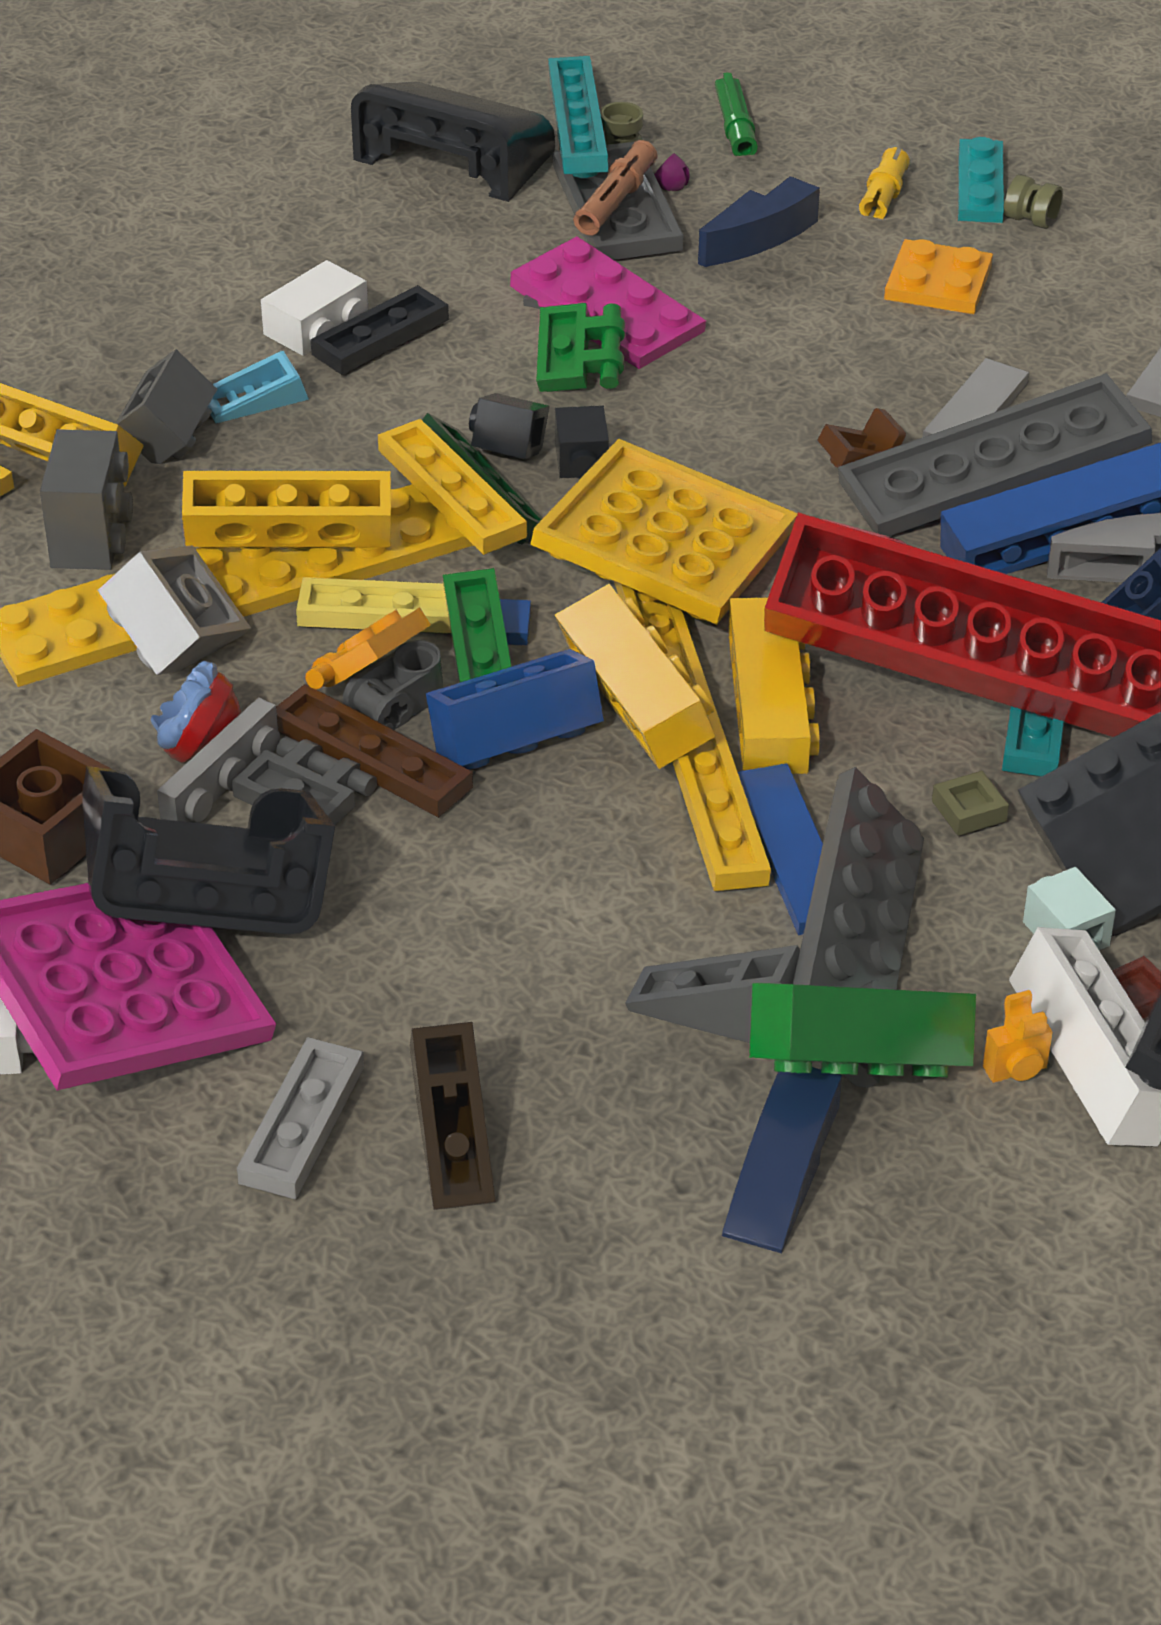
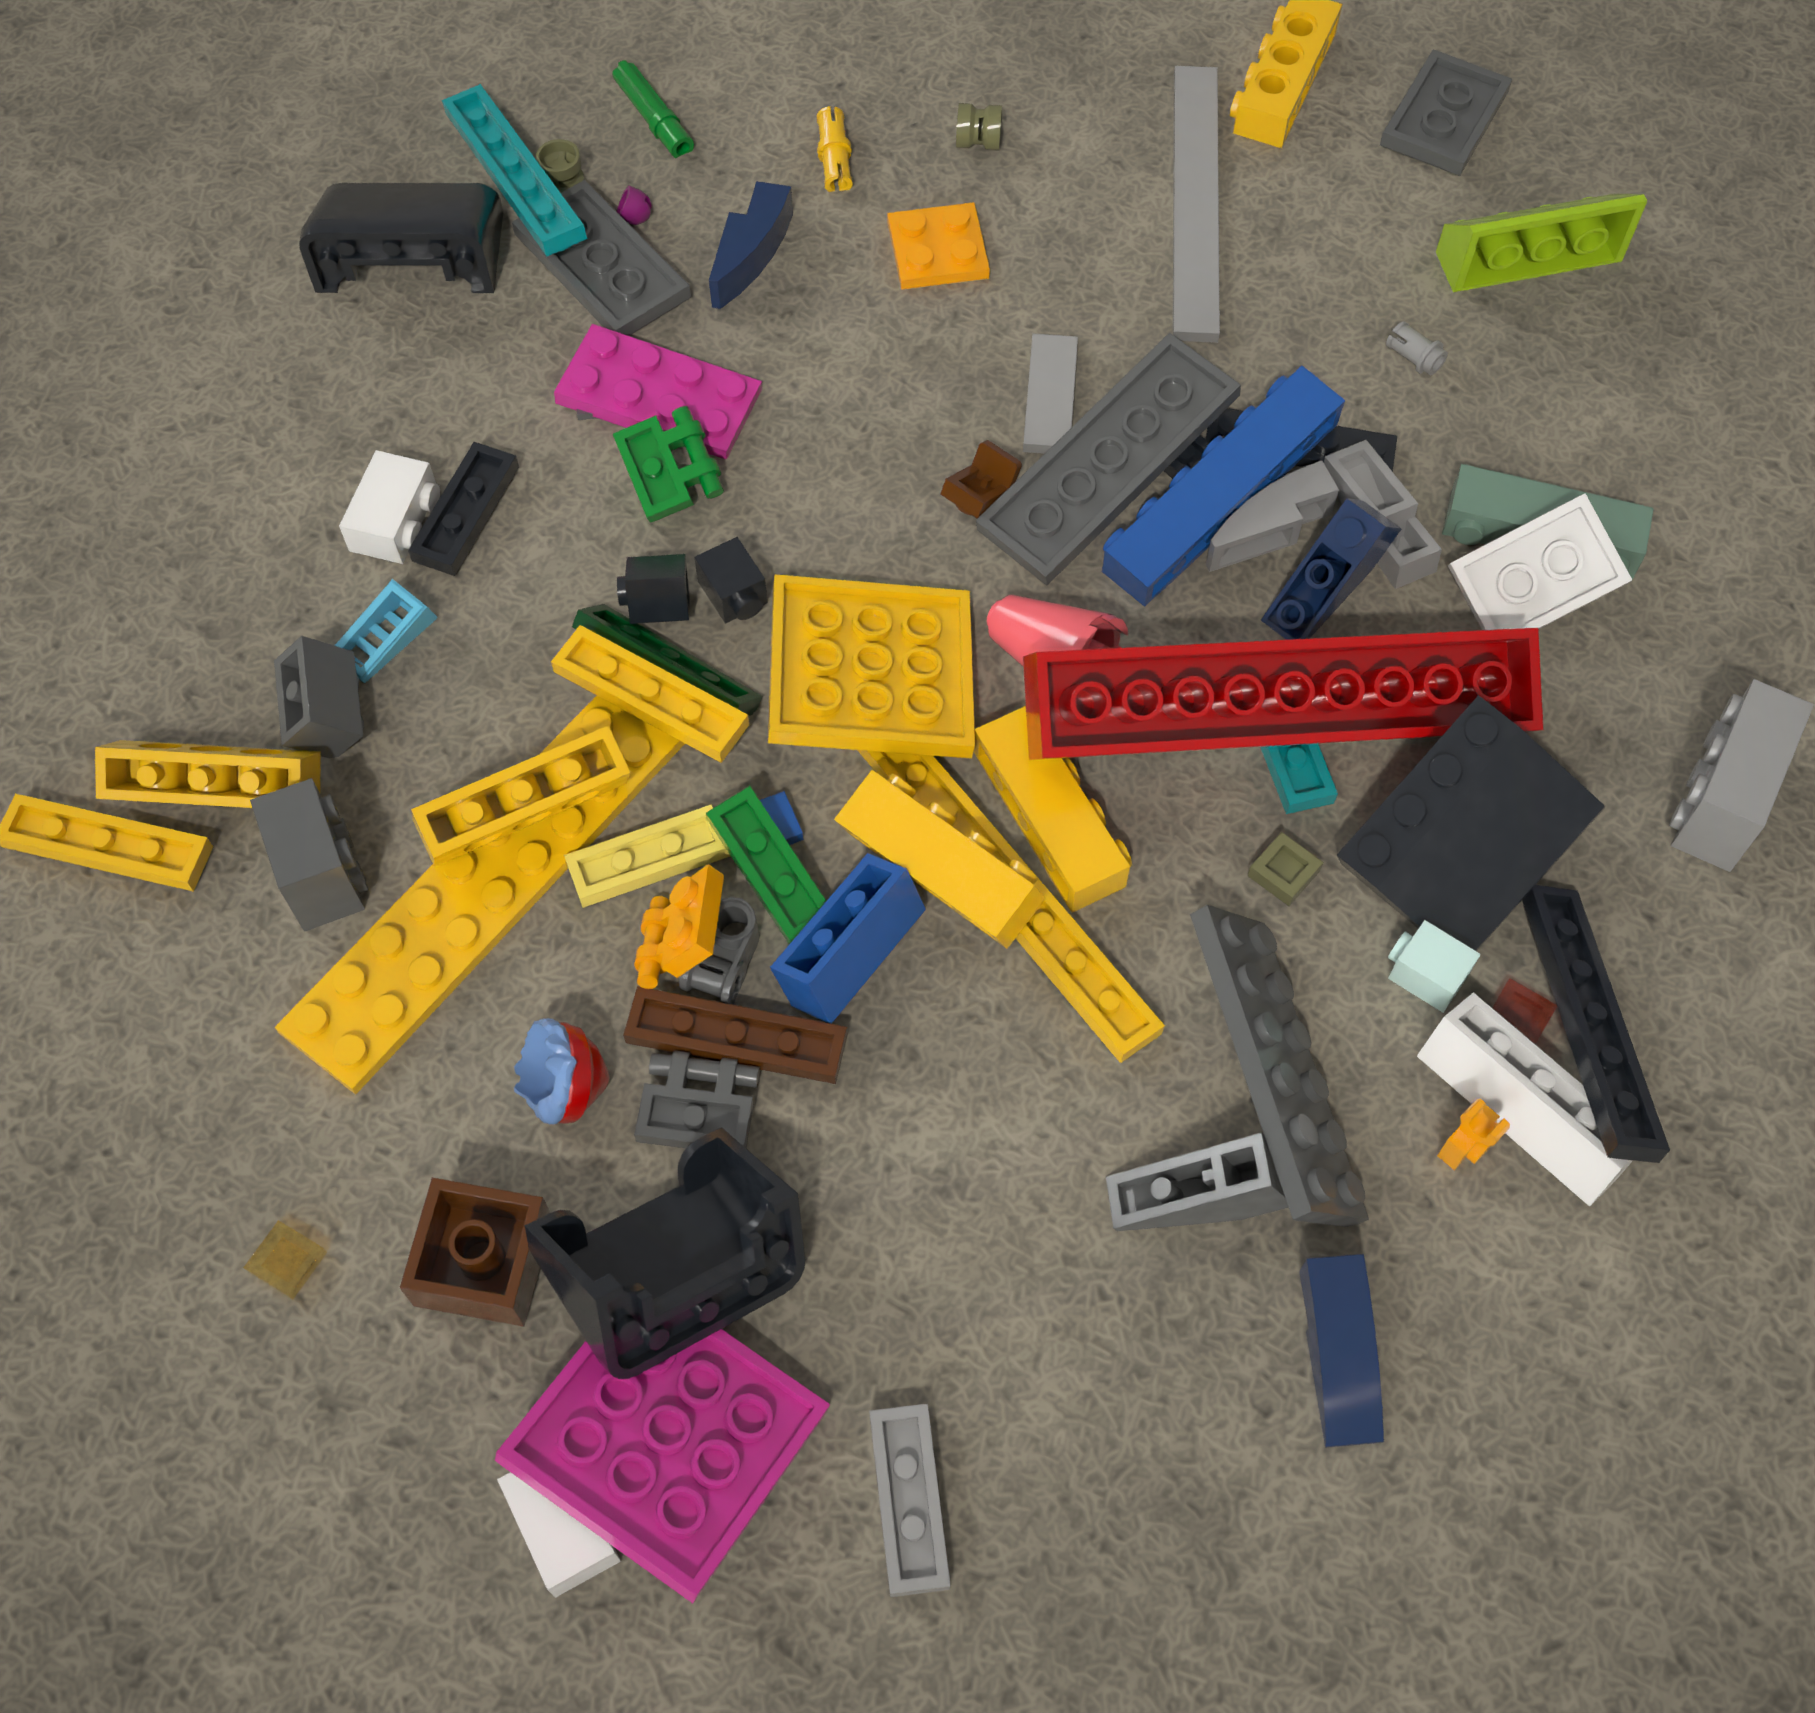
camera: 25 degrees left, 20 degrees up
(172, 608) = (471, 956): light grey slope -> none
(210, 772) = (613, 1121): light grey plate -> none
(451, 1115) = (1043, 1438): dark brown slope -> none
(623, 178) = (604, 217): nougat pin -> none
(786, 835) = (1161, 982): blue tile -> none
(861, 1026) = (1363, 1204): green brick -> none
(980, 180) = (915, 113): teal plate -> none

